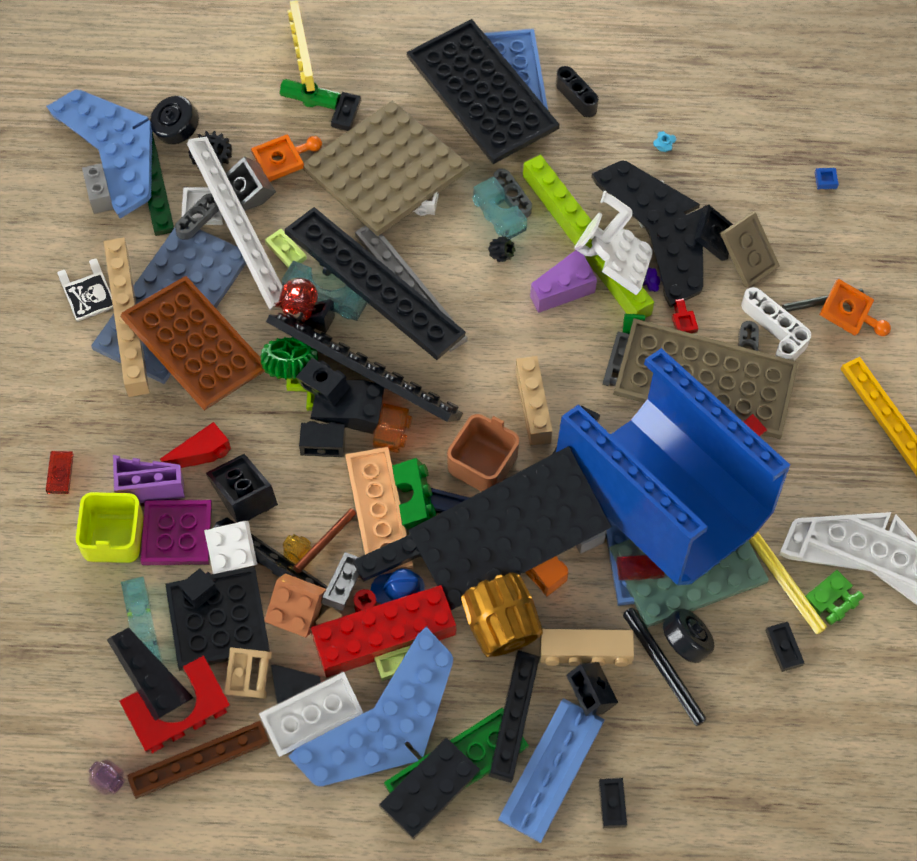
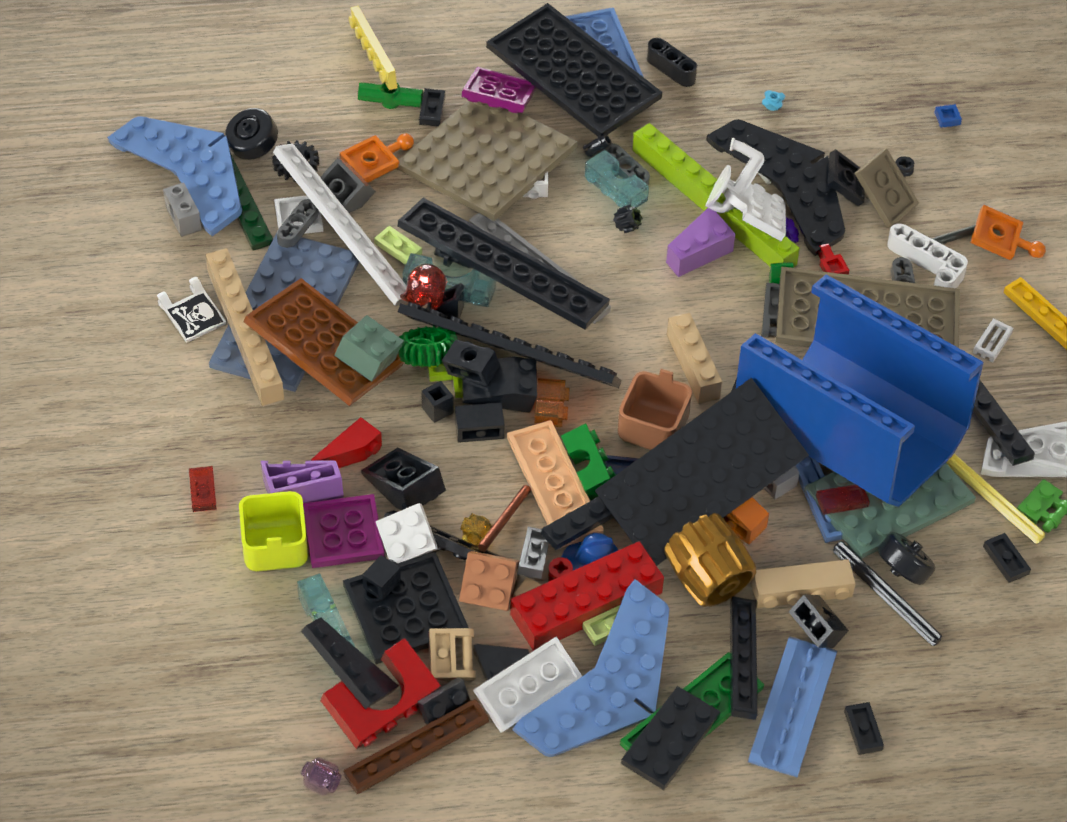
camera: 10 degrees left, 10 degrees down
(231, 718) = (444, 700): none -> black plate
(232, 355) = (369, 348): none -> sand green brick
(287, 414) = (437, 401): none -> black brick
(408, 102) = (498, 90): none -> magenta plate
(492, 168) = (597, 145): none -> black pin
(769, 228) = (909, 164): none -> black bush
(802, 500) = (1001, 428): none -> black plate
(810, 429) = (985, 352): none -> white tile

